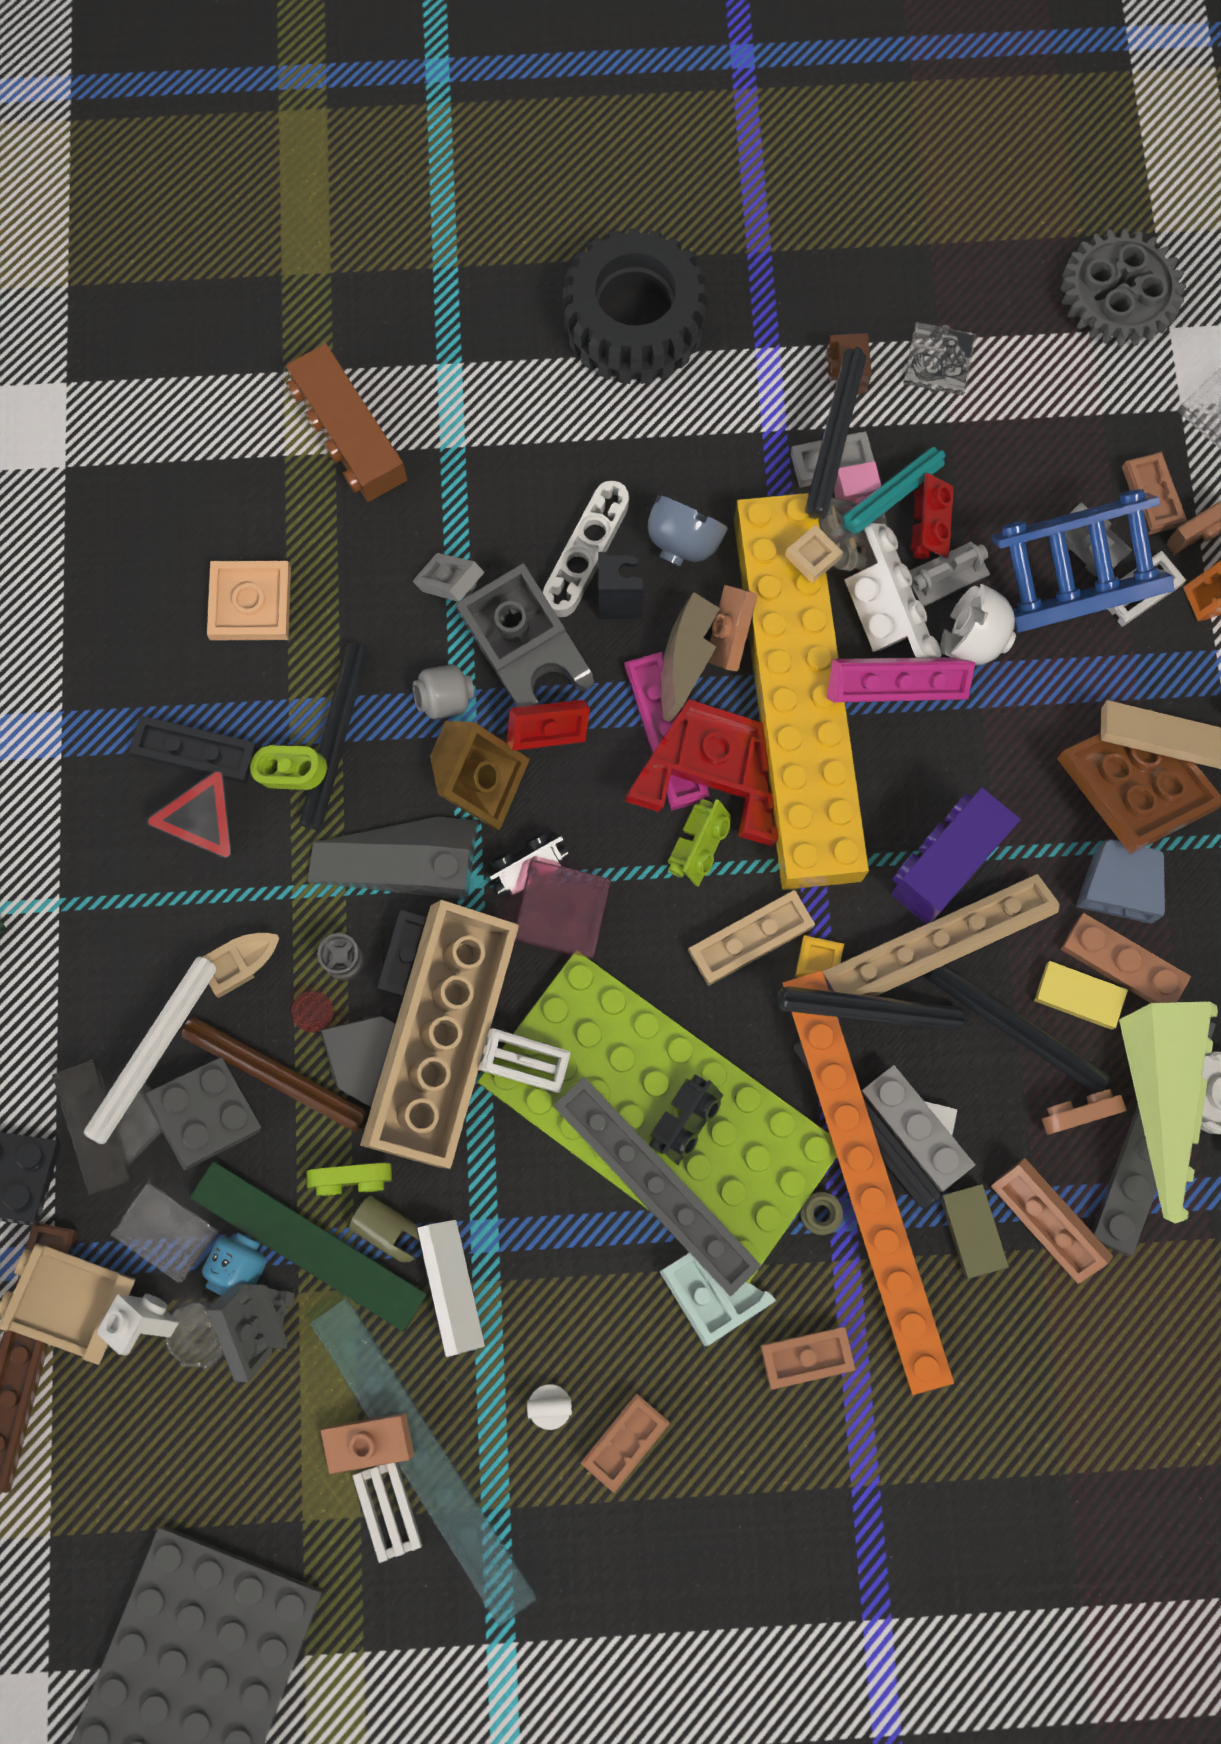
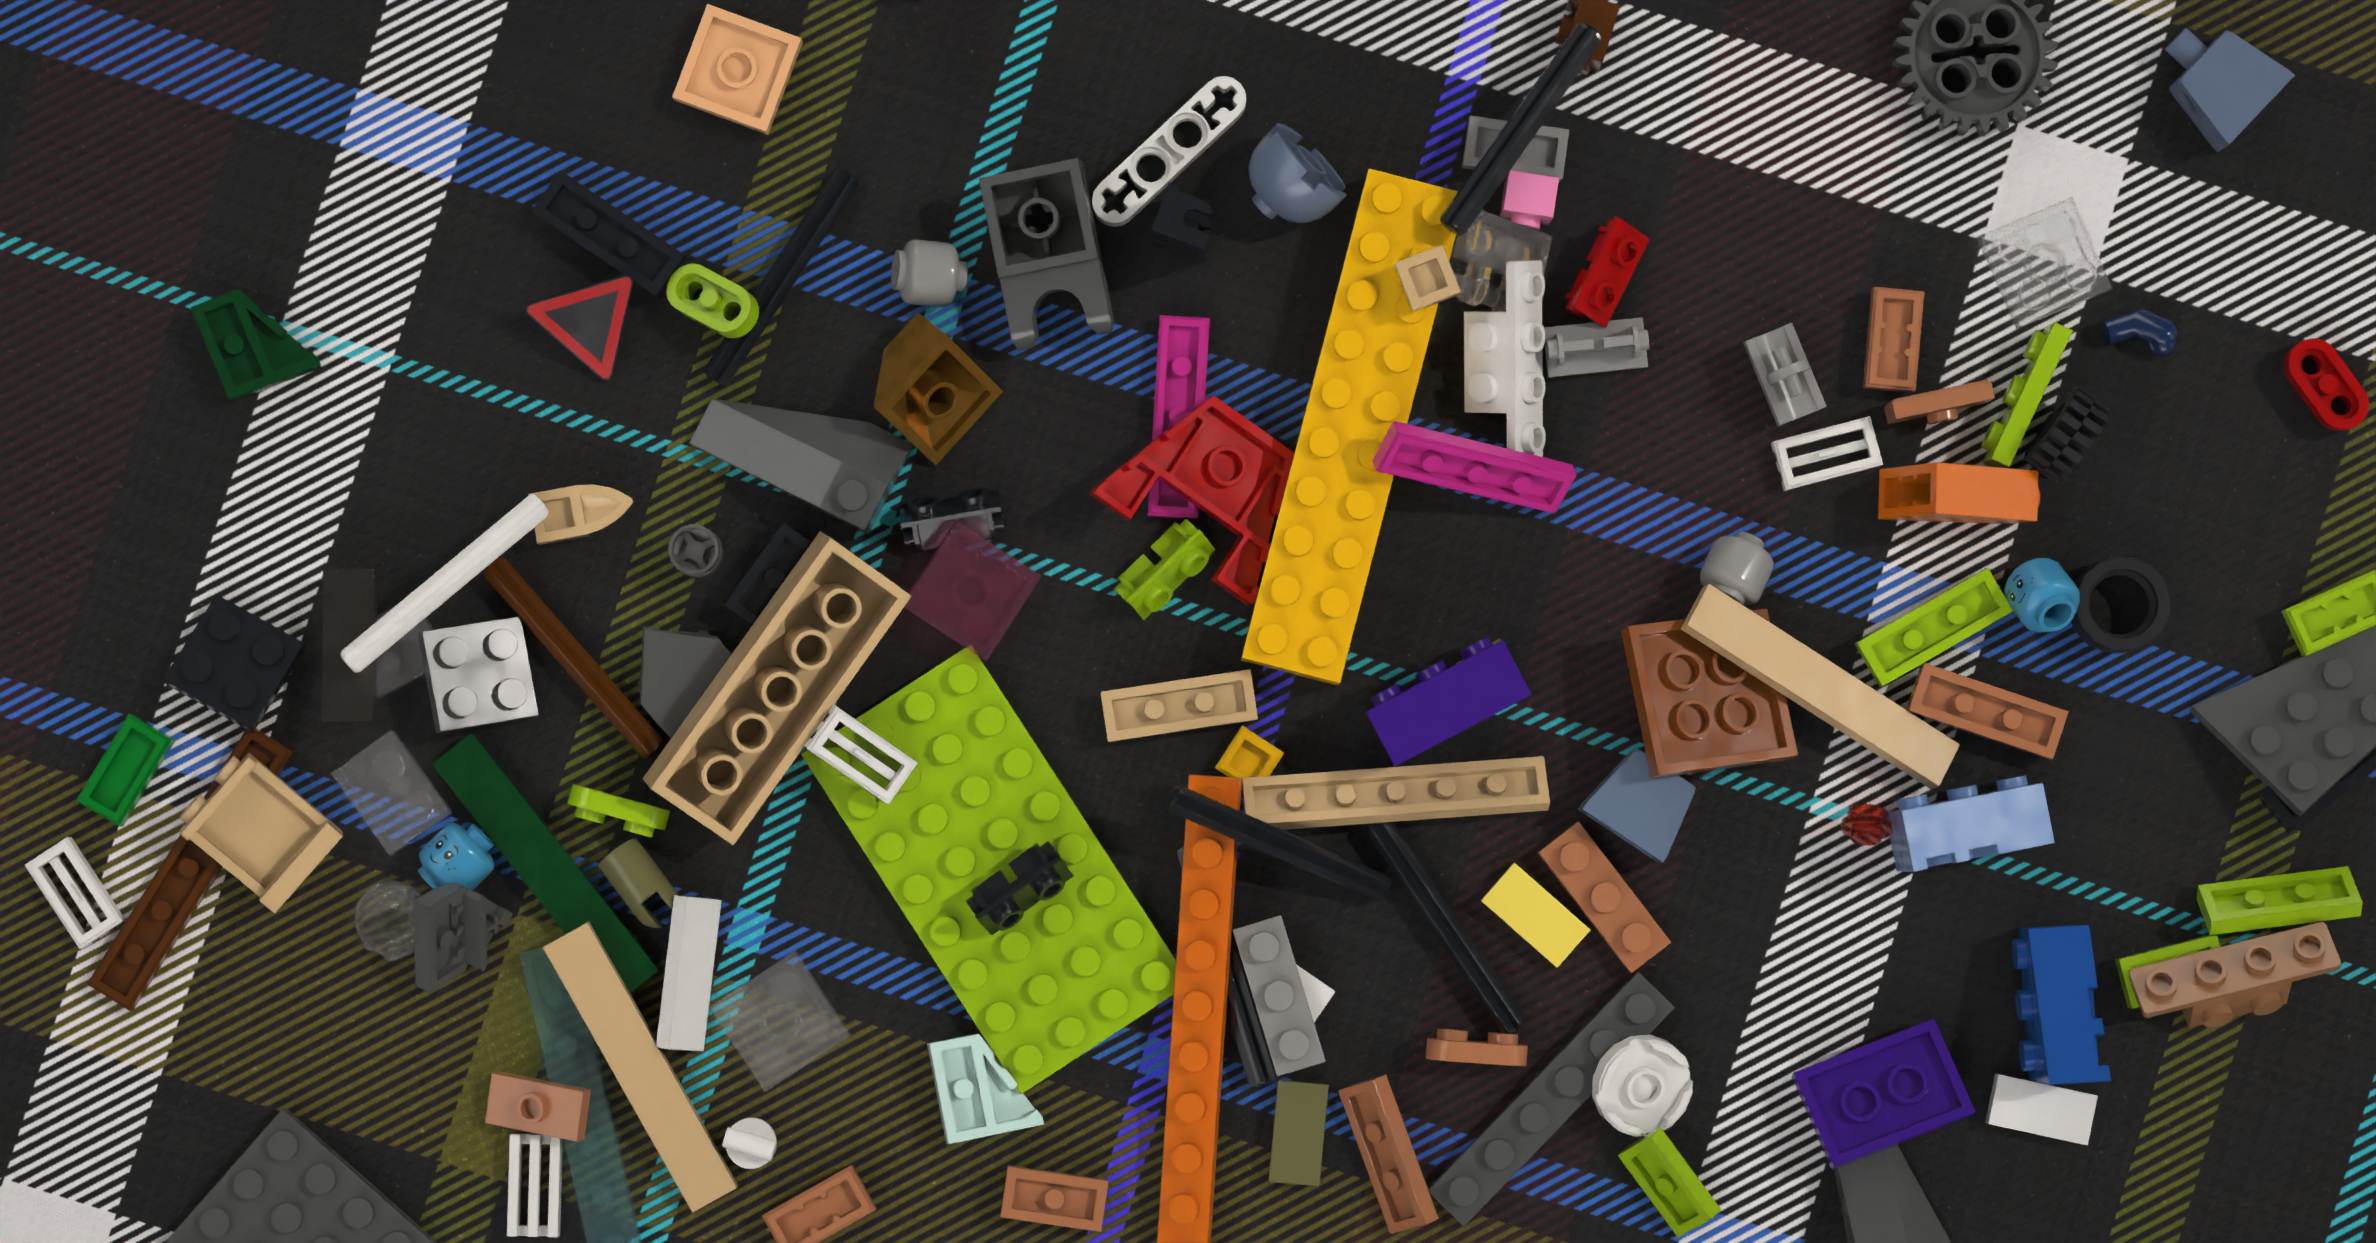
camera: 20 degrees right, 10 degrees up
(135, 1316) = (327, 877): white bracket -> none
(312, 1011) = (641, 602): clear red plate -> none
(440, 1378) = (640, 1066): none -> tan tile
(449, 577) = (985, 134): light grey plate -> none
(537, 1298) = (780, 1021): none -> clear plate
(547, 725) = (1036, 364): red plate -> none
(657, 1186) = (956, 949): dark grey plate -> none
(686, 653) = (1234, 336): dark tan slope -> none
(731, 627) = (1300, 324): nougat plate -> none
(834, 1210) = (1129, 1064): olive plate -> none
(893, 490) = (1568, 223): teal axle -> none
(939, 358) = (1707, 60): piece -> none
(981, 627) = (1601, 436): white cylinder -> none
(1108, 590) = (1771, 449): blue fence -> none
(1119, 683) = (1738, 567): none -> light grey head
(1166, 1065) = (1587, 1029): yellowish green wedge -> none

